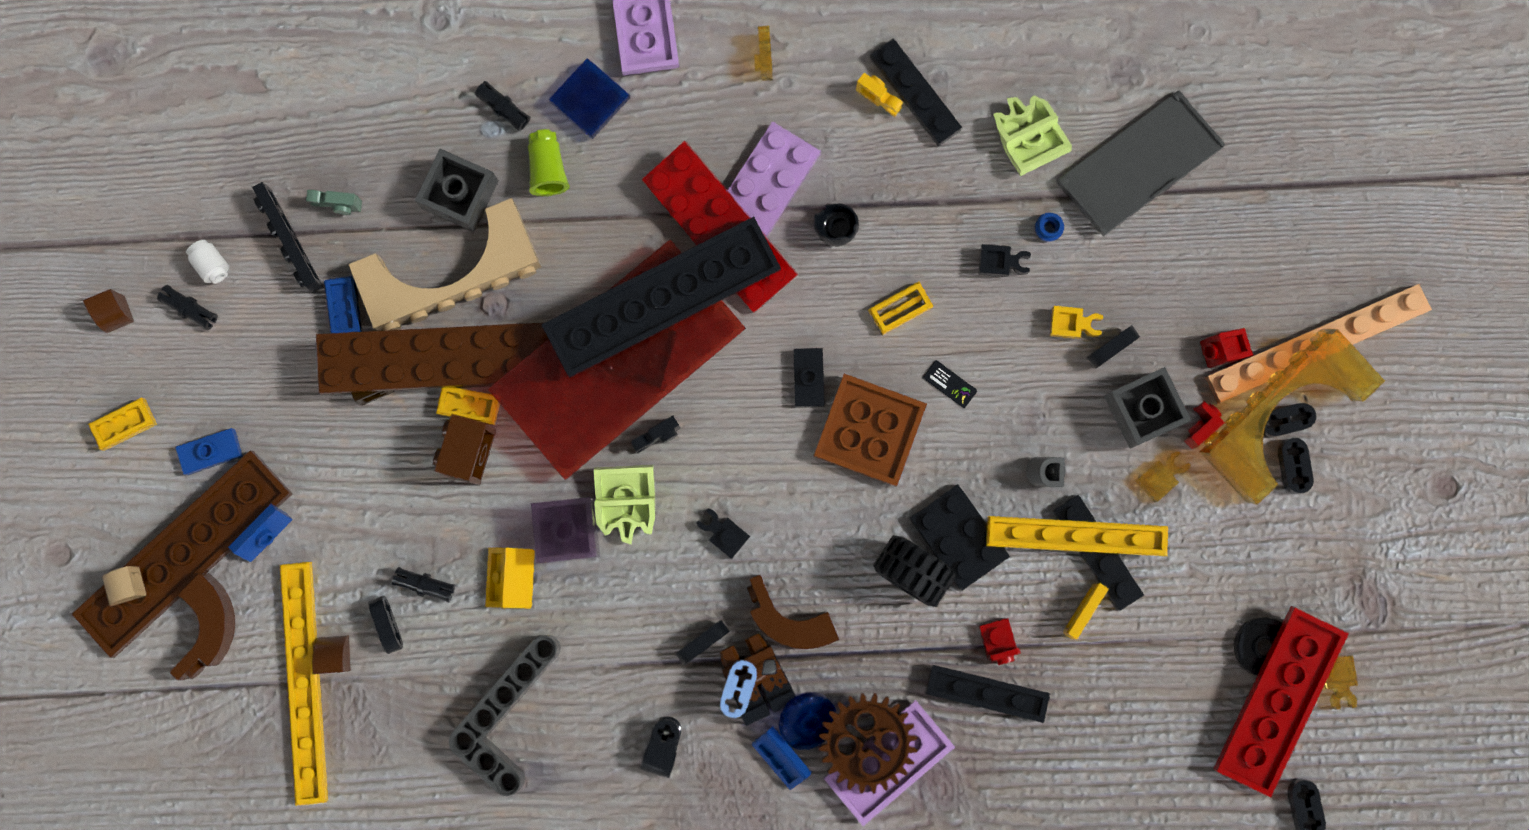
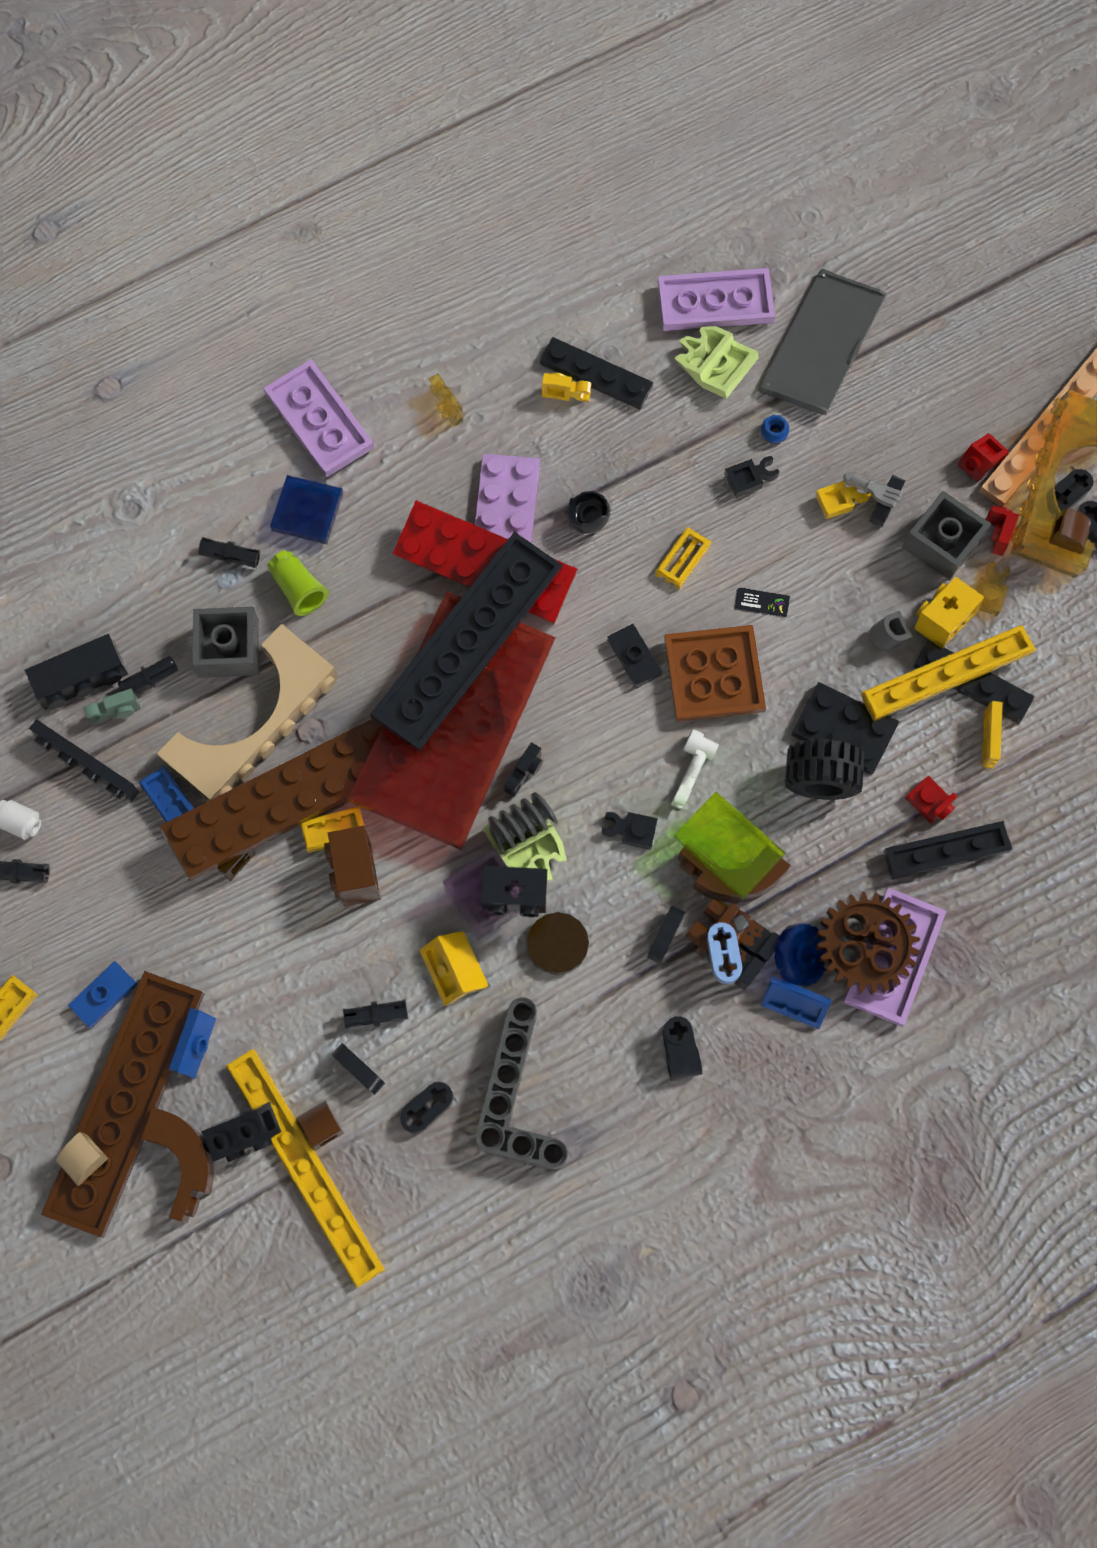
camera: 30 degrees left, 10 degrees down
(262, 631) = (241, 1132): none -> black brick
(318, 153) = (76, 672): none -> black brick
(378, 187) = (149, 675): none -> black axle
(428, 693) = (432, 1113): none -> black beam
(573, 531) = (499, 883): none -> black brick
(607, 601) = (557, 943): none -> dark brown tile
(625, 484) = (521, 821): none -> dark grey piece
(795, 595) = (729, 845): none -> clear neon green tile
(821, 493) = (701, 749): none -> white brick
(1063, 73) = (716, 299): none -> lavender plate
(1109, 340) = (882, 493): none -> light grey piece
(1124, 474) = (948, 612): none -> yellow brick
(1260, 464) = (1070, 530): none -> reddish brown brick

